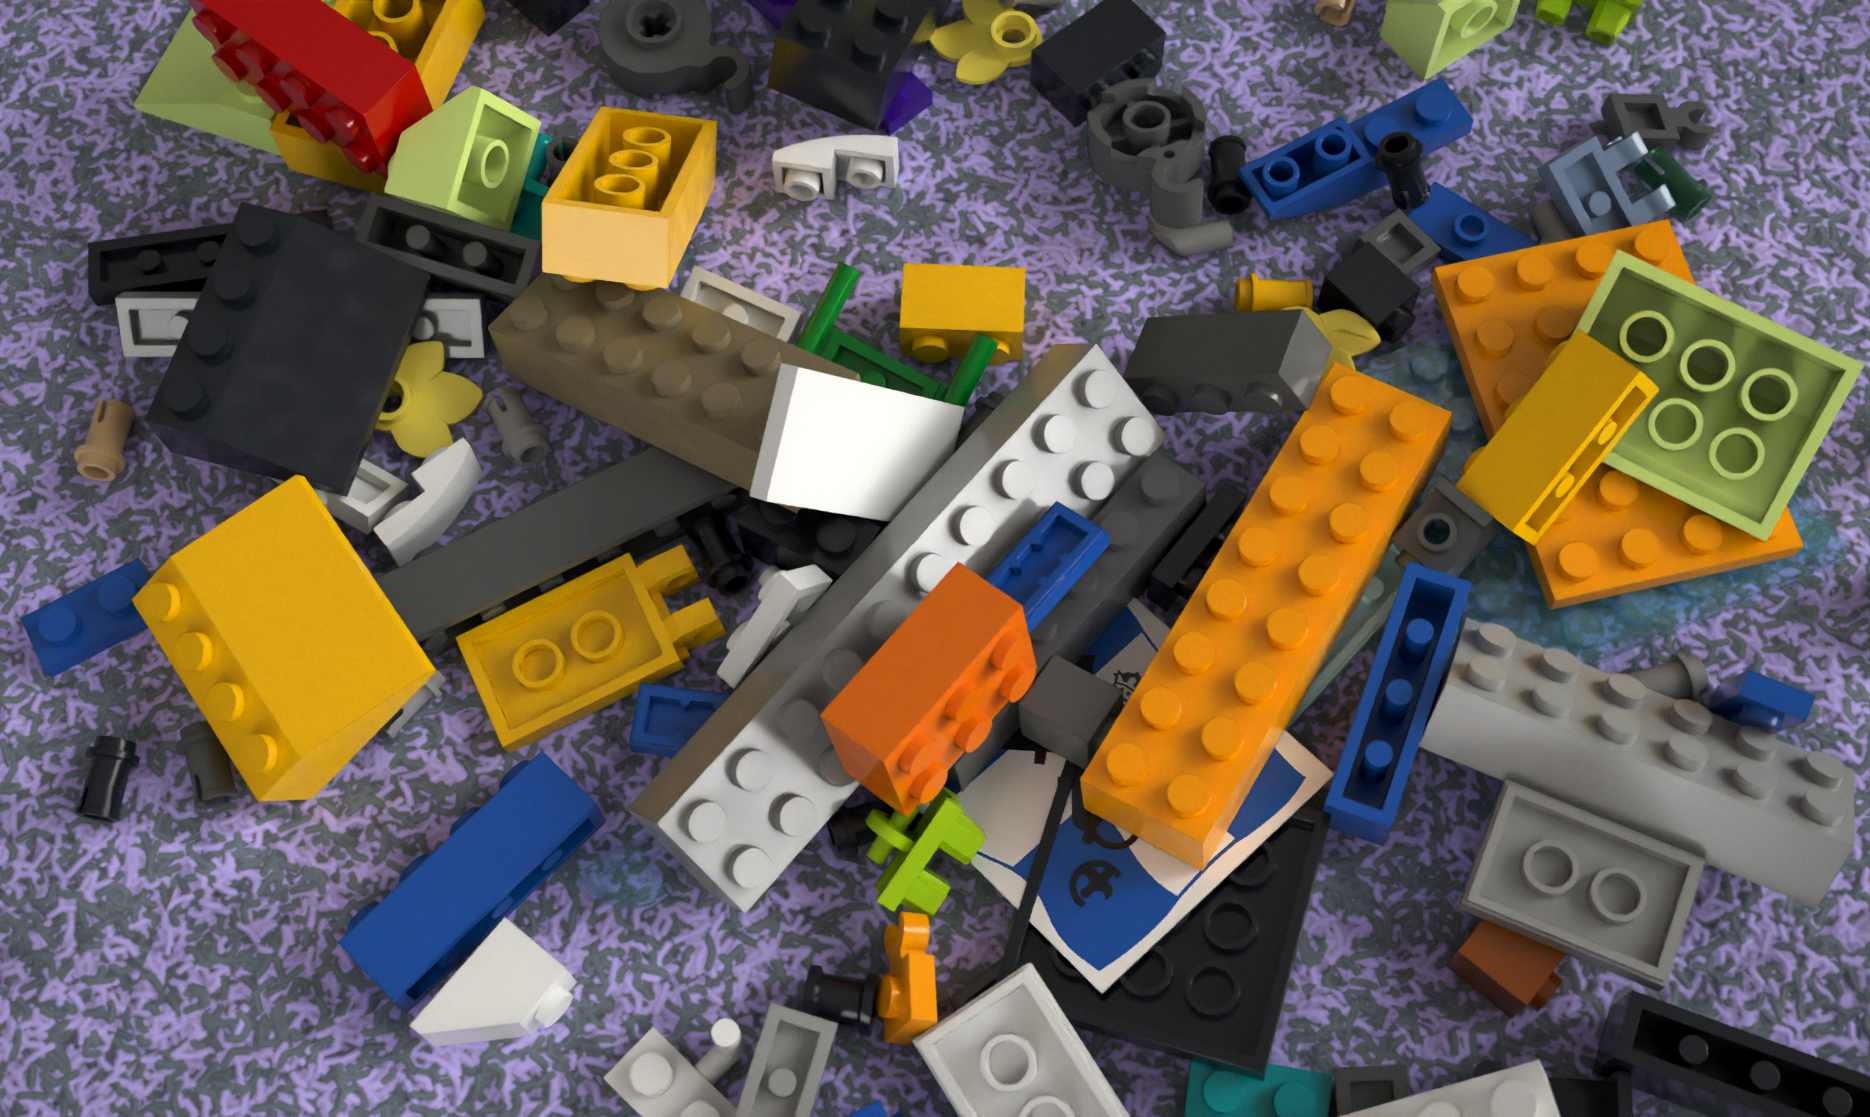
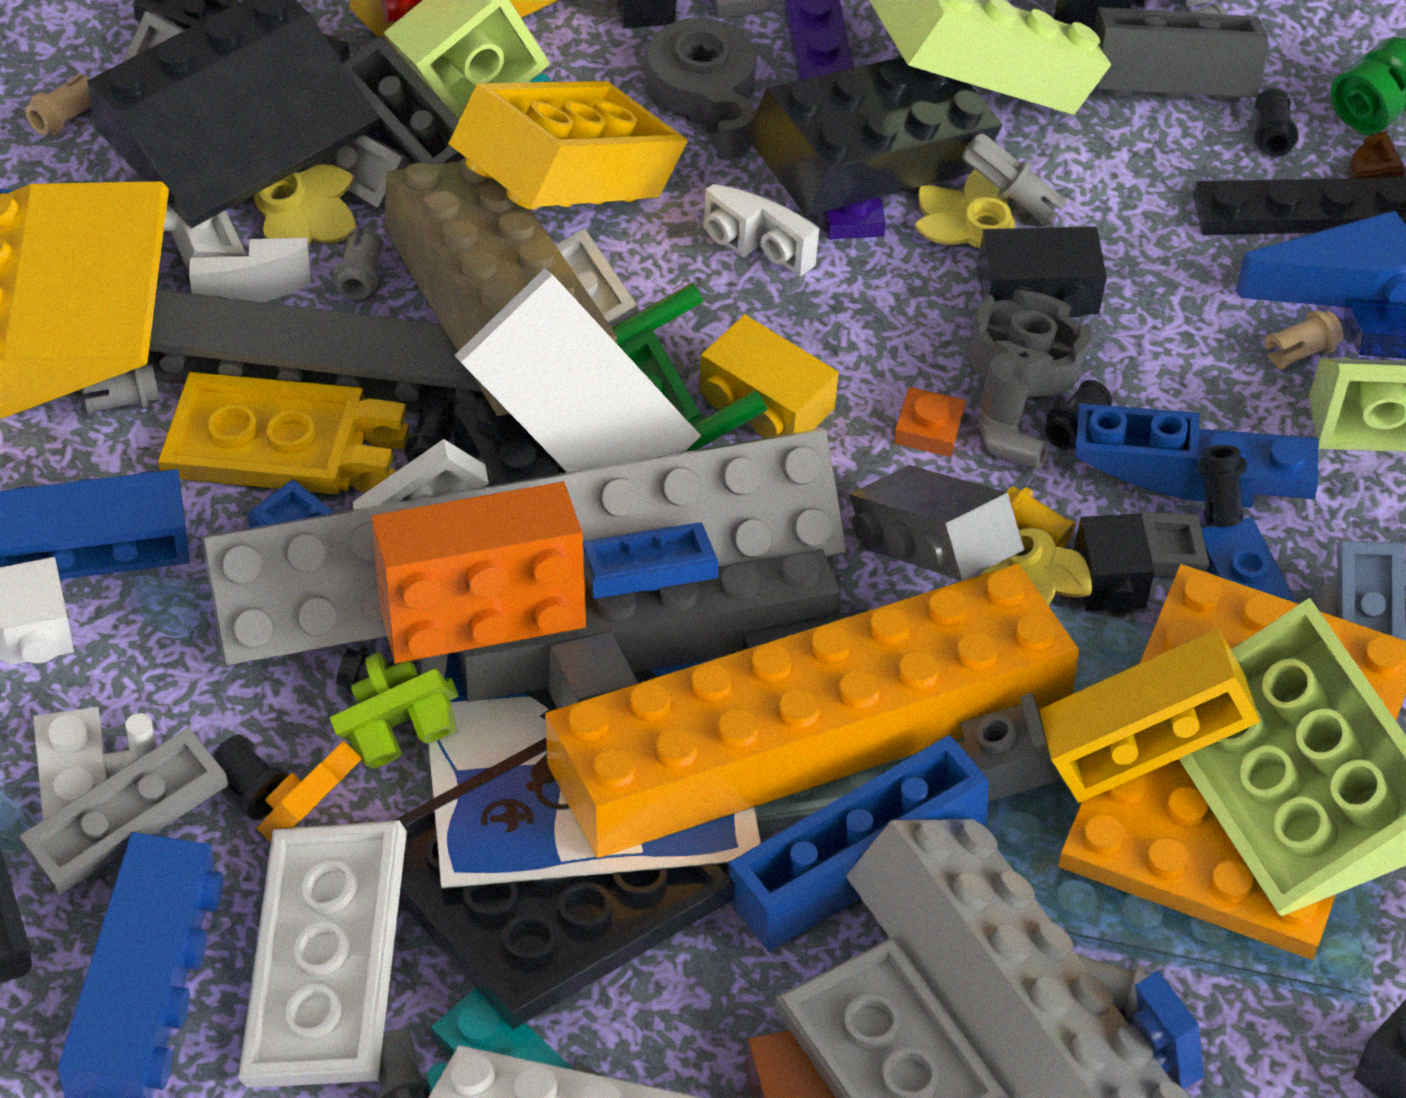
camera: 30 degrees right, 15 degrees down
(1114, 259) = (929, 421): none -> orange plate

